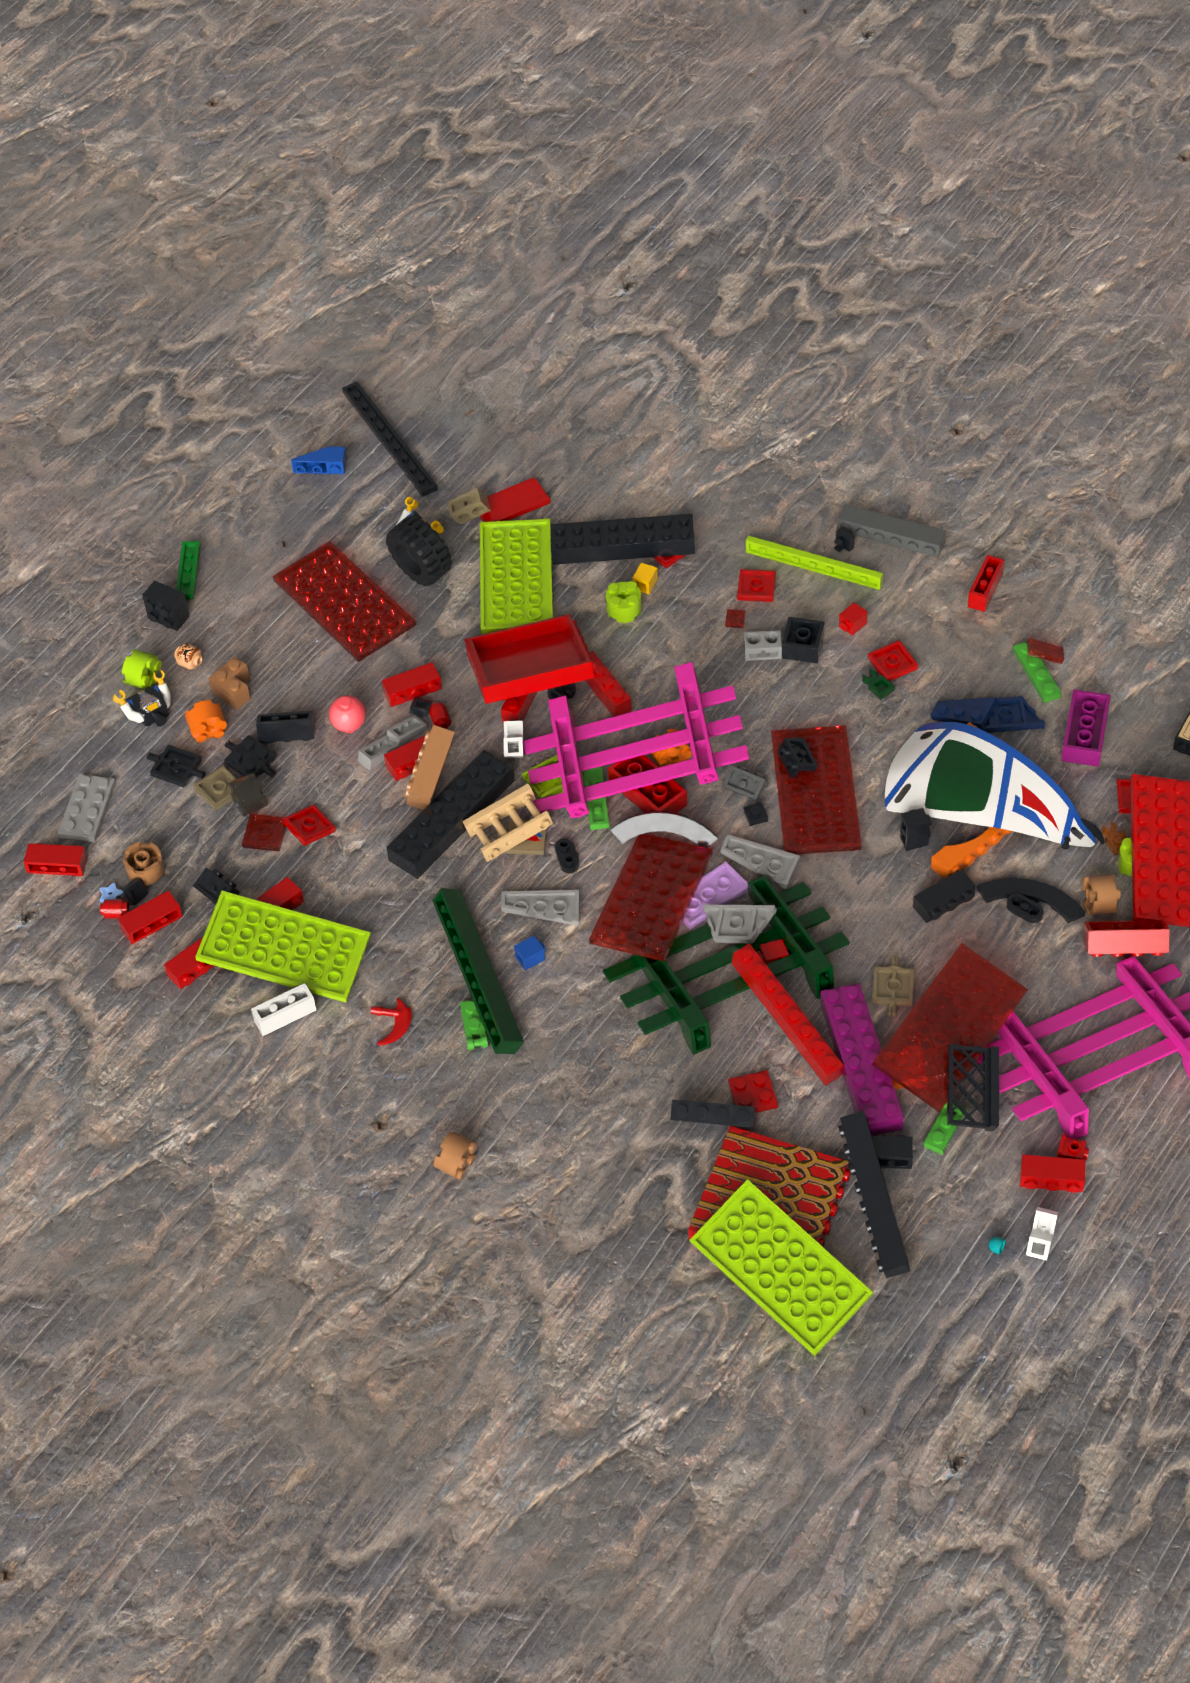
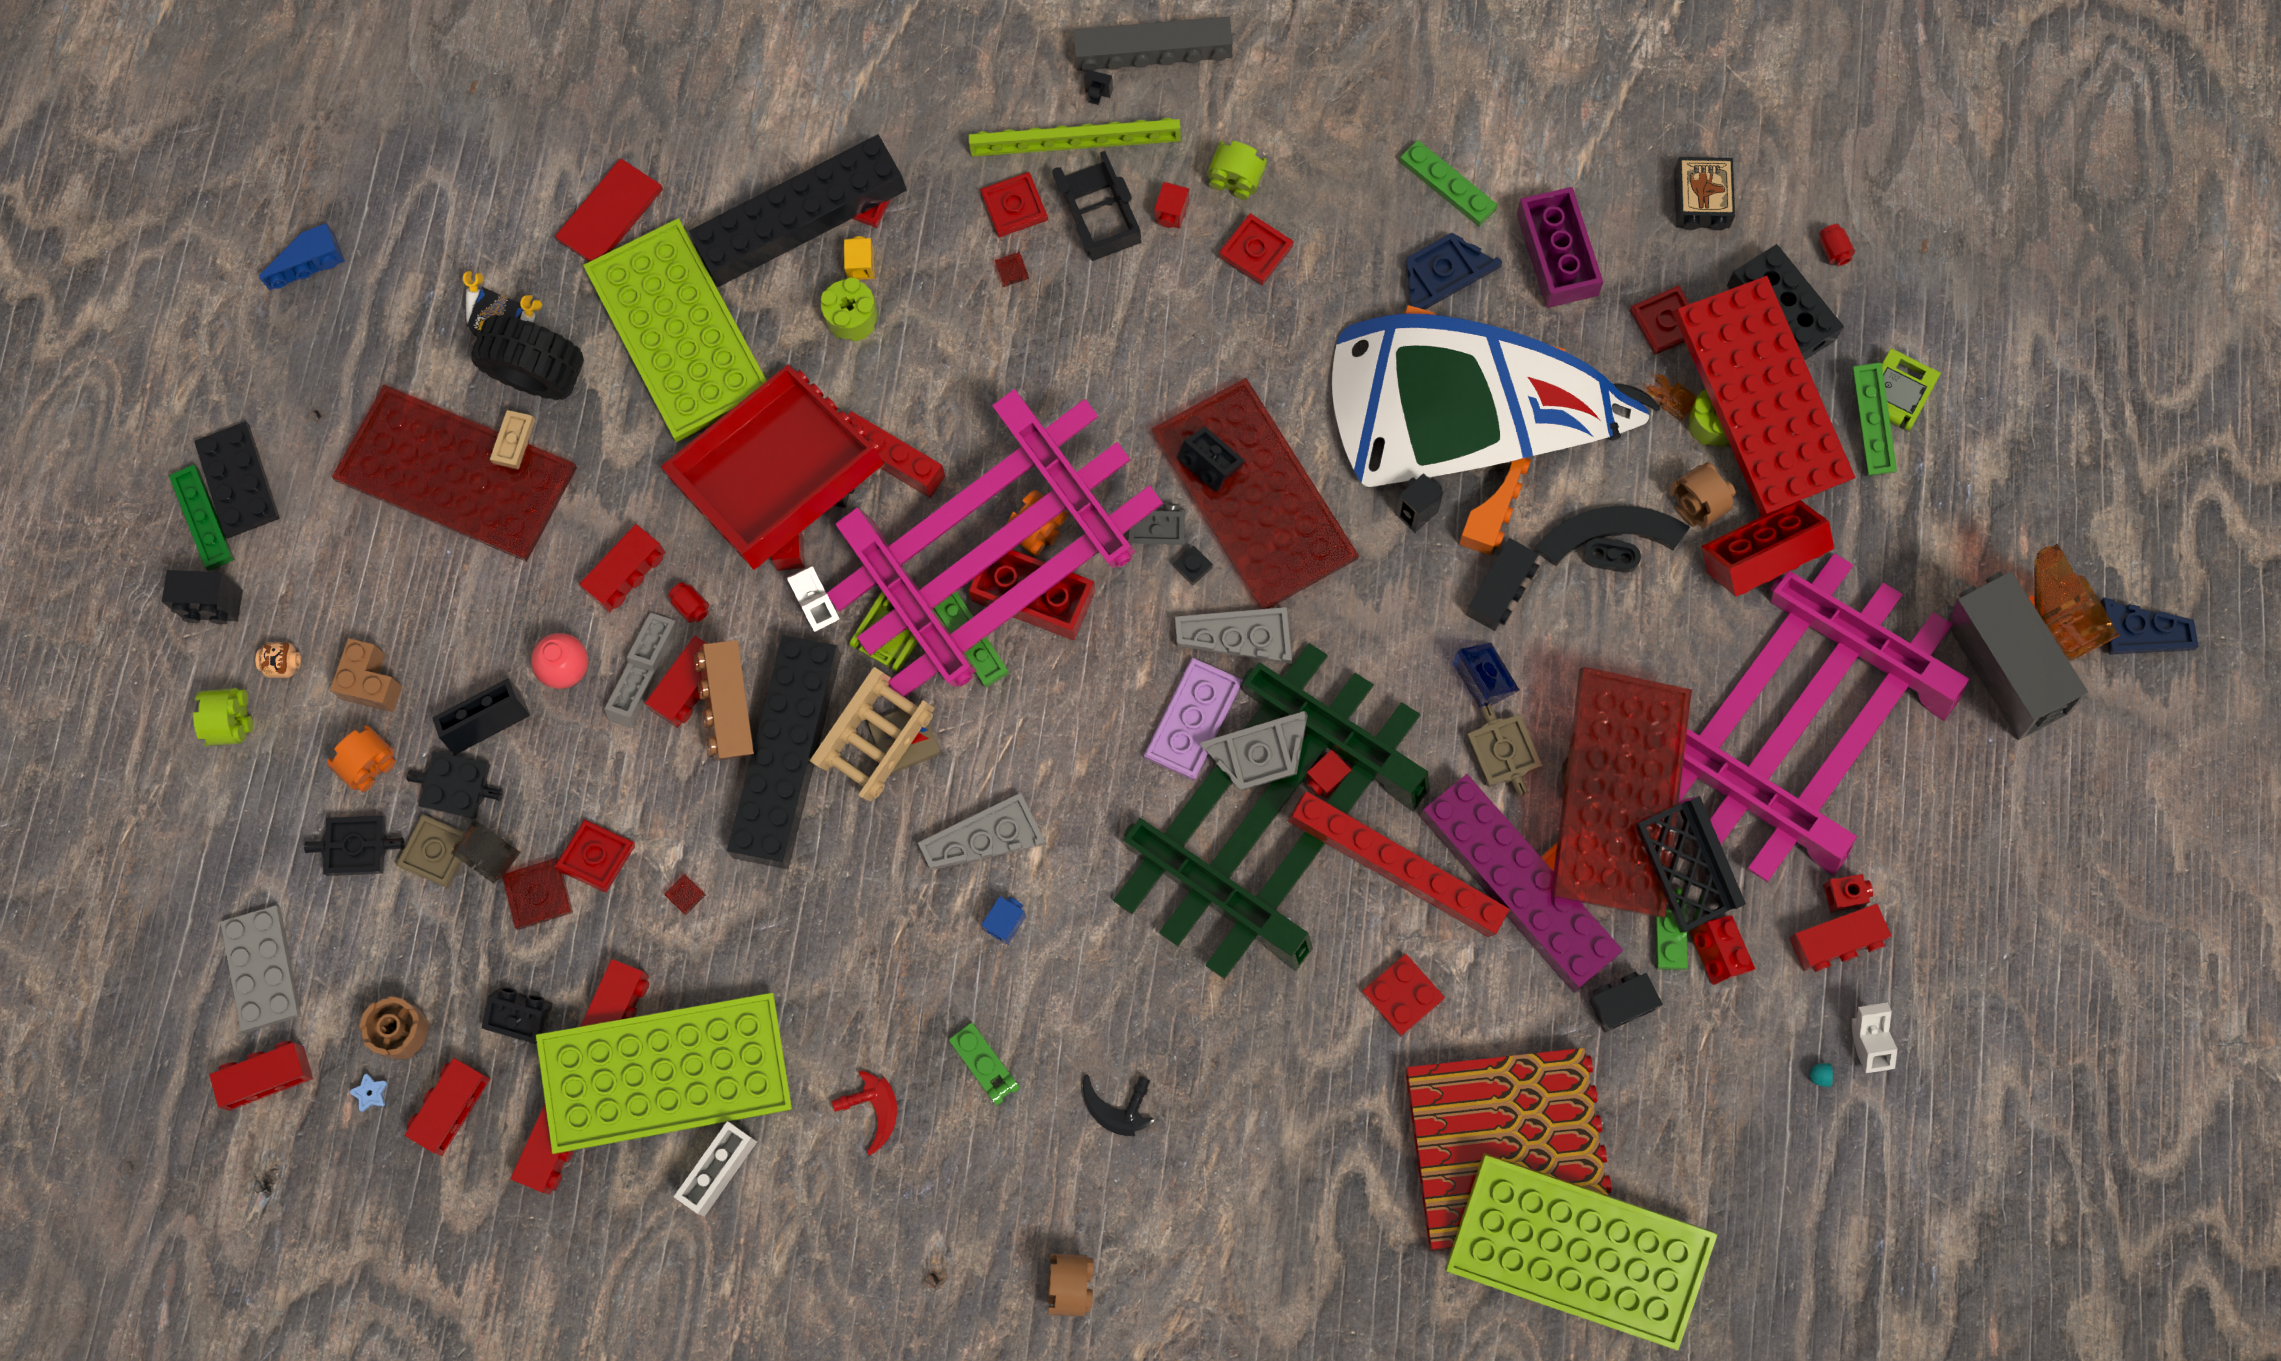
camera: 25 degrees left, 20 degrees up
(113, 908) = (389, 1116): red brick -> none
(135, 891) = (403, 1075): black tile -> none
(148, 705) = (262, 766): torso -> none
(218, 559) = (236, 479): none -> black plate
(349, 866) = (685, 894): none -> clear red tile
(386, 593) = (512, 439): none -> tan plate
(390, 439) = (381, 179): black plate -> none
(420, 707) = (654, 598): black plate -> none
(468, 506) = (556, 248): dark tan brick -> none
(478, 971) = (950, 983): dark green brick -> none
(538, 1089) = (1116, 1120): none -> black piece
(566, 854) = (973, 742): black plate -> none
(651, 897) = (1125, 763): clear red plate -> none
(665, 822) = (1085, 640): tile -> none
(713, 1113) = (1374, 1057): black brick -> none
(762, 645) = (1075, 303): light grey brick -> none
(803, 640) = (1124, 268): black brick -> none
(807, 590) = (1090, 181): none -> black piece
(875, 1195) = (1644, 1083): black brick -> none
(878, 686) = (1257, 295): dark green plate -> none
(903, 612) = (1236, 169): none -> lime brick
(905, 940) = (1484, 674): none -> clear blue slope
(965, 711) = (1390, 288): dark blue wing -> none
(971, 1149) = (1722, 949): none -> red bracket
(986, 583) = (1321, 76): red brick -> none
(1045, 651) = (1447, 149): clear red tile -> none

